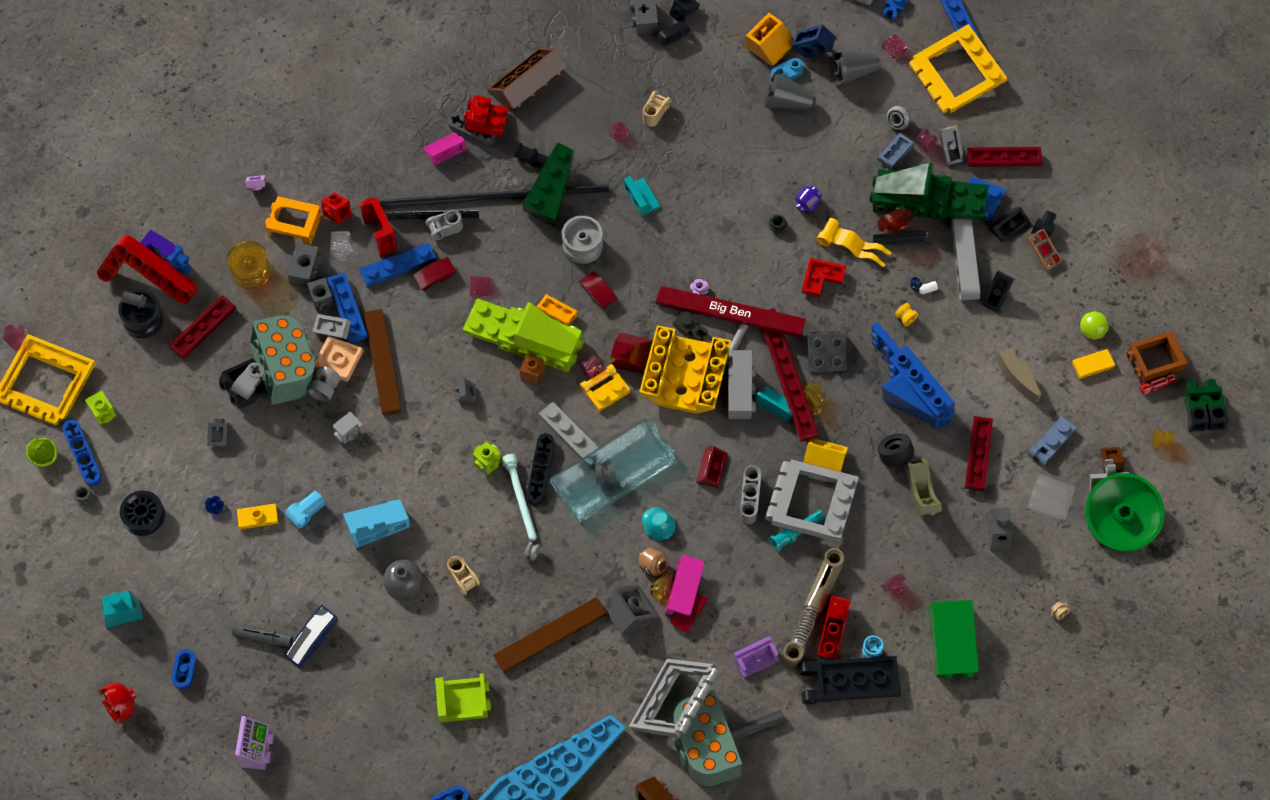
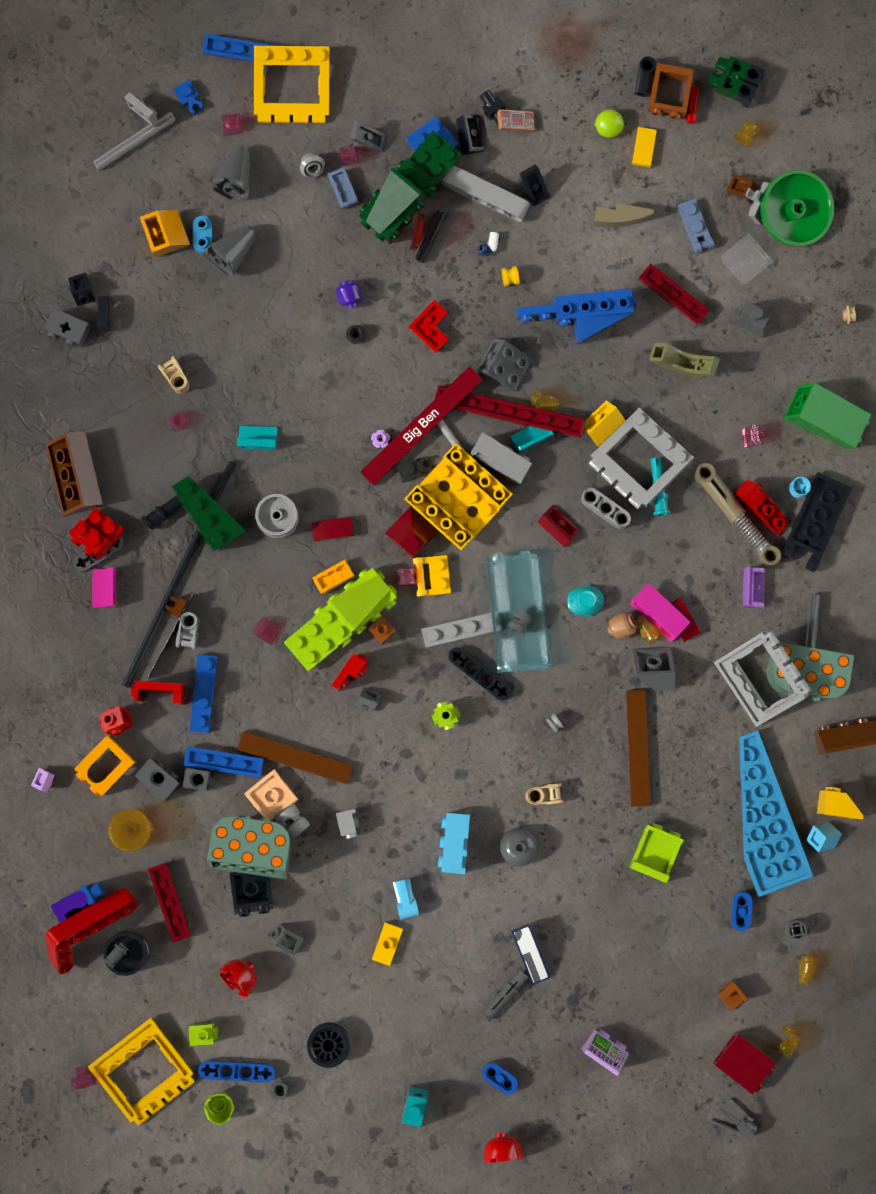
camera: 65 degrees left, 20 degrees up
(167, 410) = (239, 976): none -> red cylinder
(214, 509) = (355, 982): clear blue plate -> none
(248, 380) = (259, 893): light grey piece -> none
(331, 326) = (237, 786): light grey plate -> none
(341, 246) = (157, 736): clear brick -> none
(437, 271) = (233, 665): dark red slope -> none
(460, 206) = (179, 607): none -> reddish brown tile
(480, 358) = (355, 668): none -> red plate
(510, 463) = (461, 698): light aqua piece -> none
(814, 41) = (192, 194): dark blue brick -> none
(850, 240) = (409, 282): yellow flag -> none
(895, 450) = (645, 364): black tyre -> none
(1004, 156) = (403, 97): dark red plate -> none
(1154, 328) = (645, 78): none -> black piece

